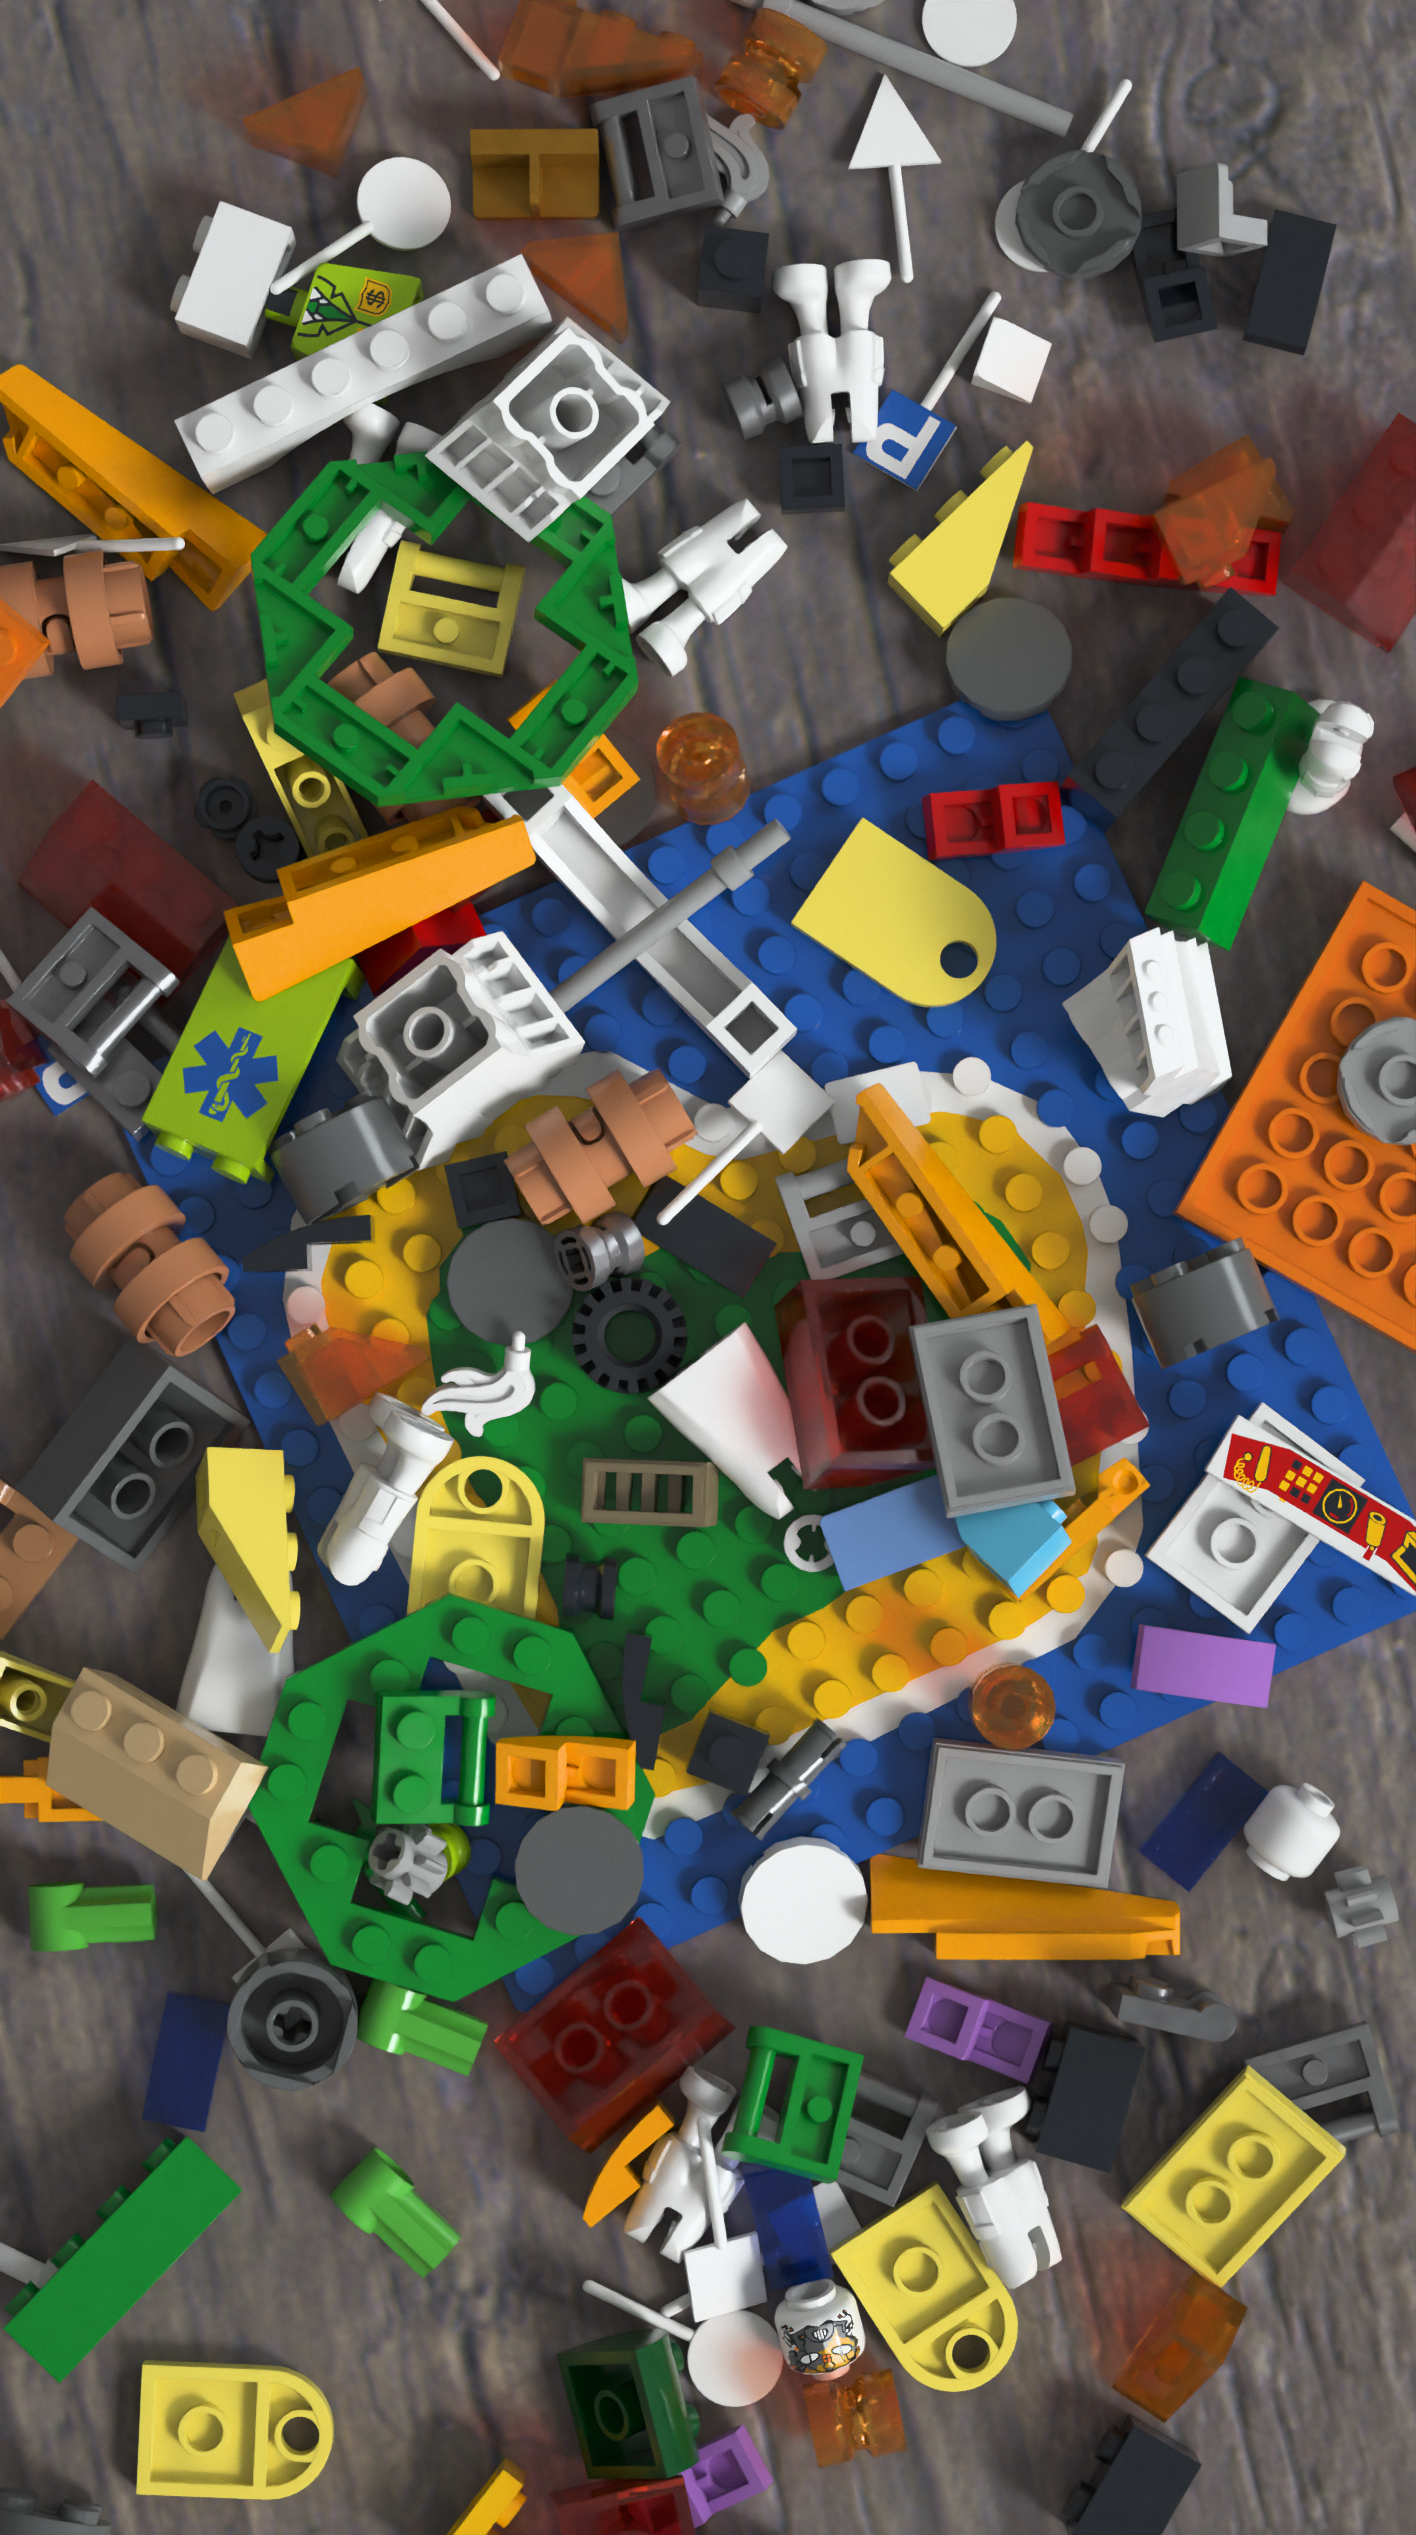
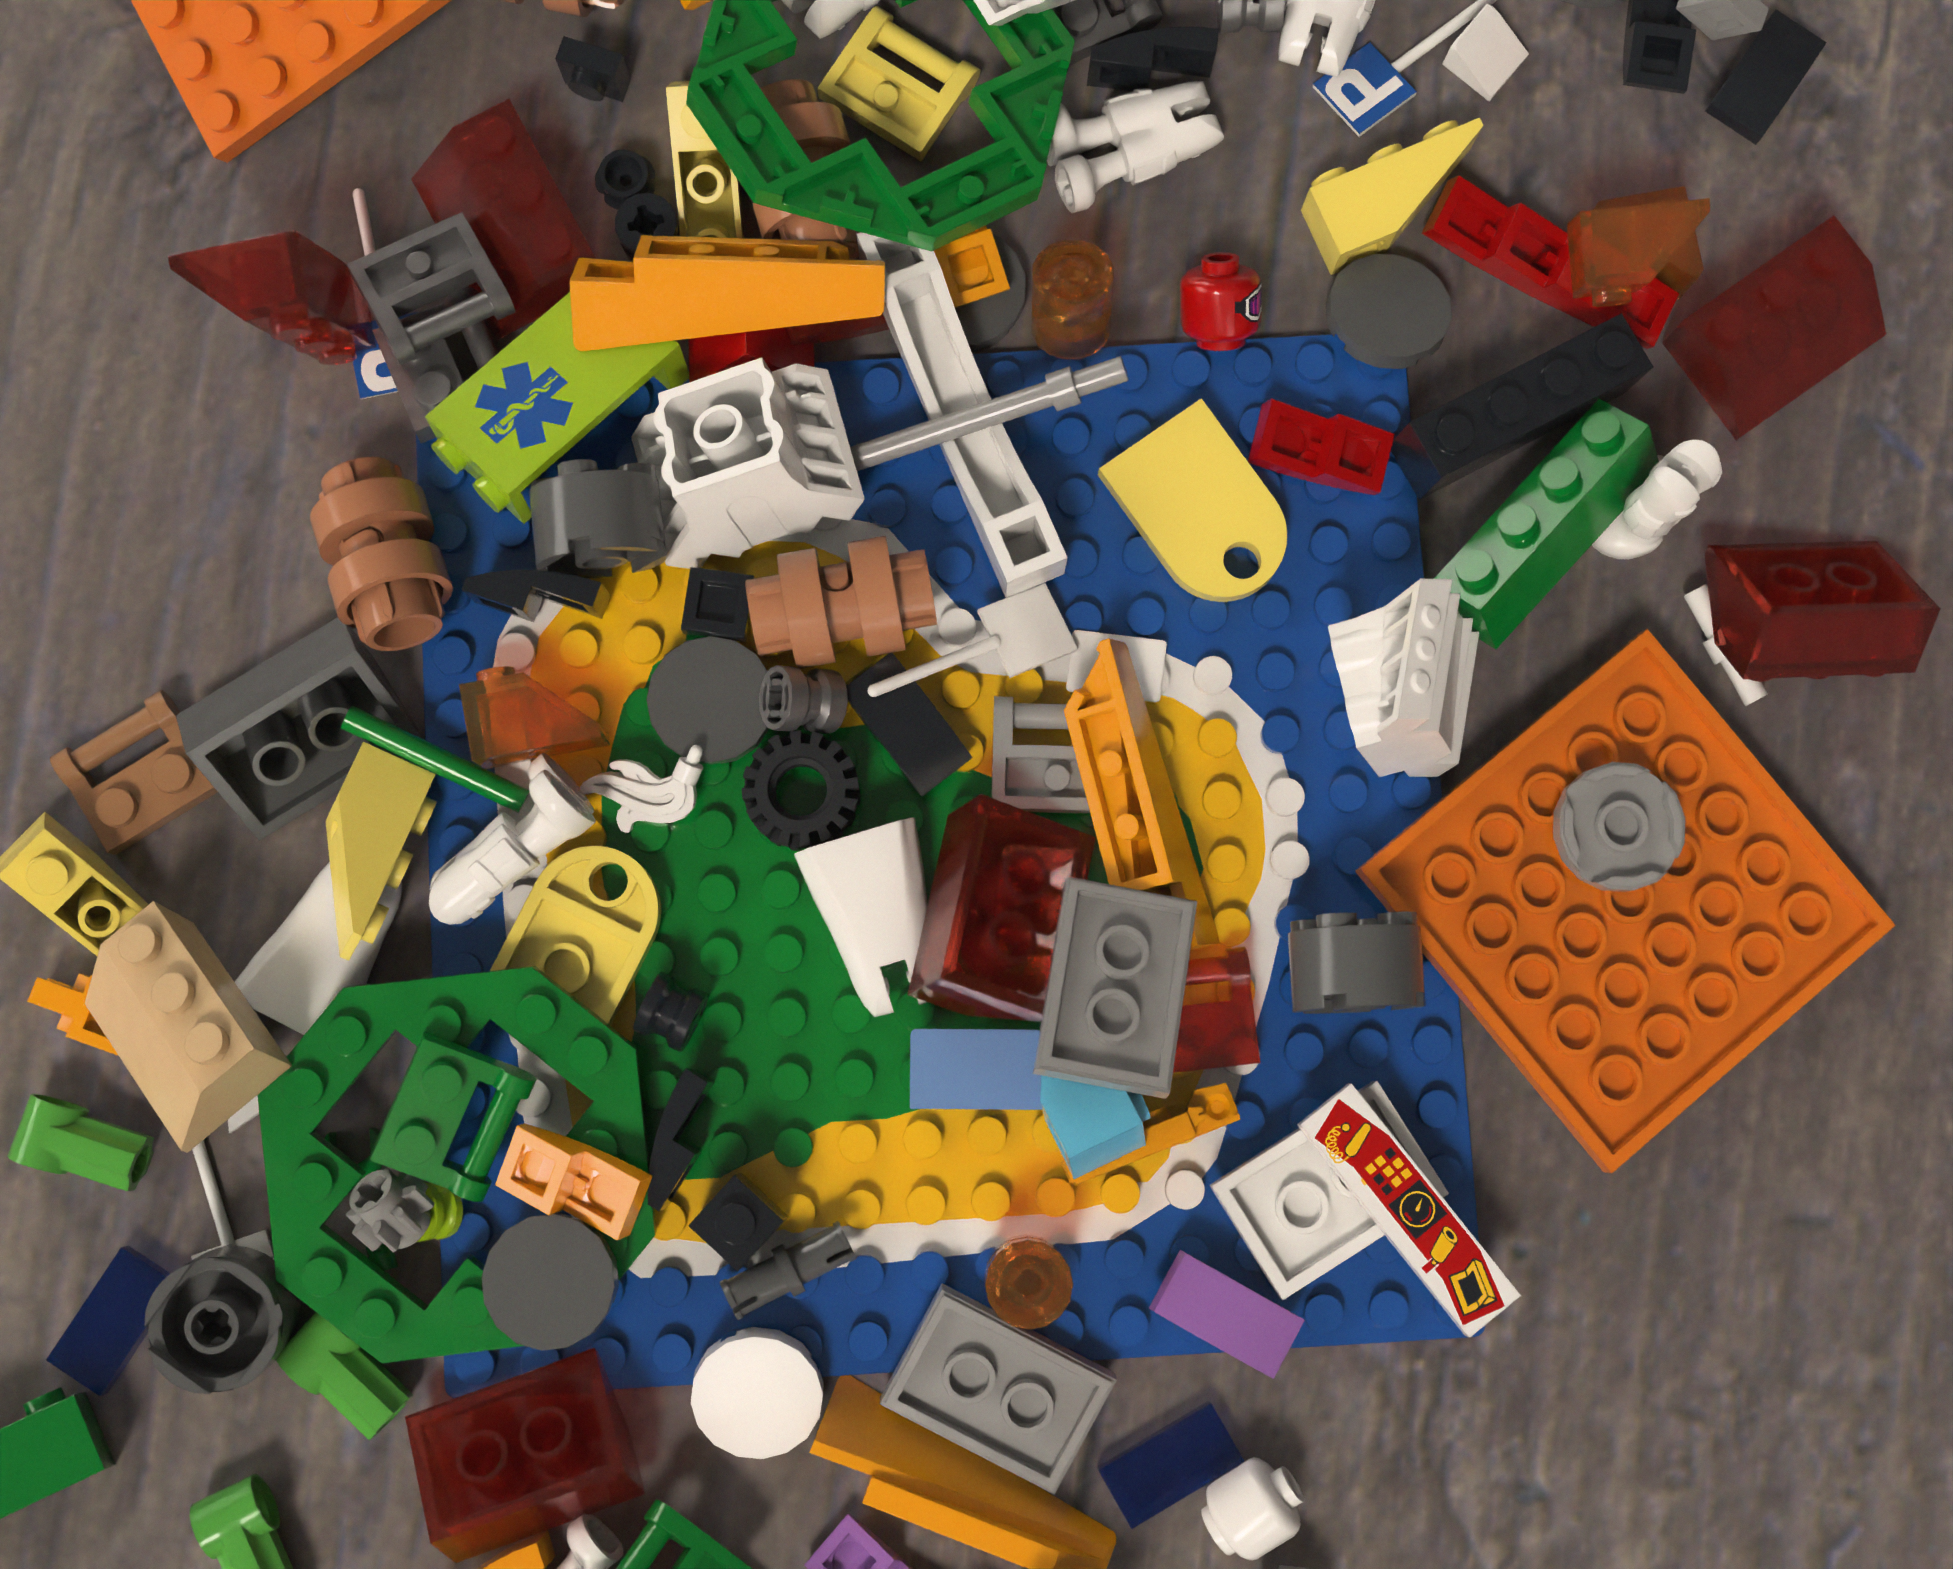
camera: 20 degrees right, 5 degrees down
(277, 1436) = (435, 759): none -> green bar
(671, 501) = (1128, 60): none -> black slope
(705, 1492) = (814, 963): dark tan slope -> none
(792, 1542) = (880, 1043): white bush -> none
(811, 479) = (1267, 88): black plate -> none
(845, 715) = (1220, 302): none -> red head

